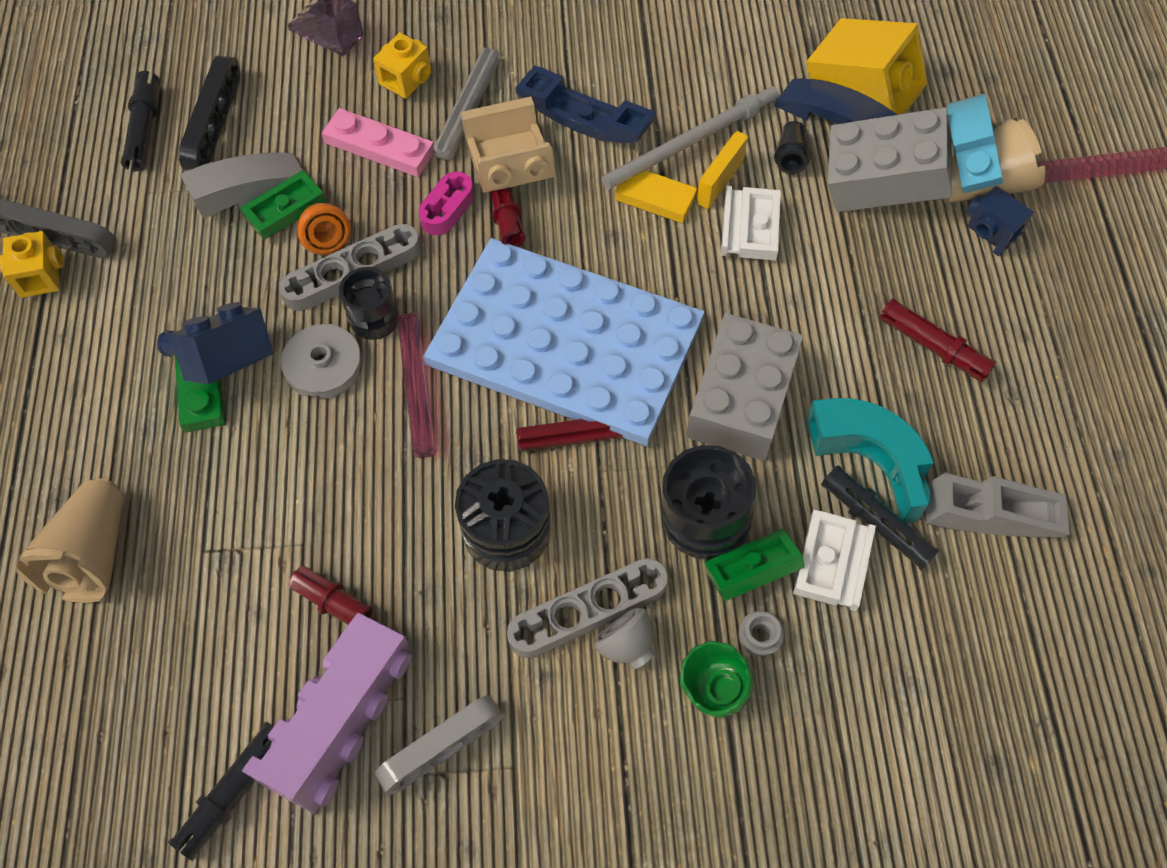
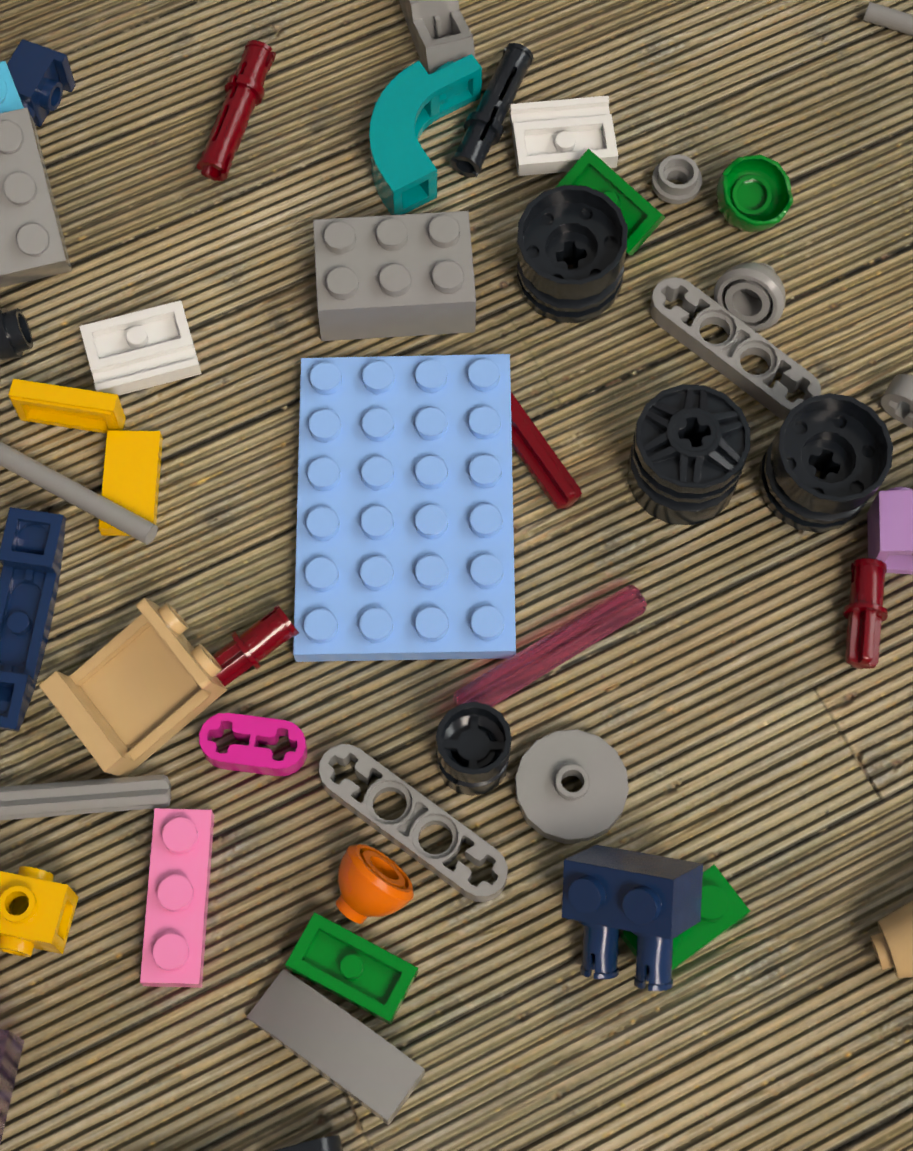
camera: 115 degrees left, 5 degrees up
(440, 583) = (839, 440): none -> black wheel

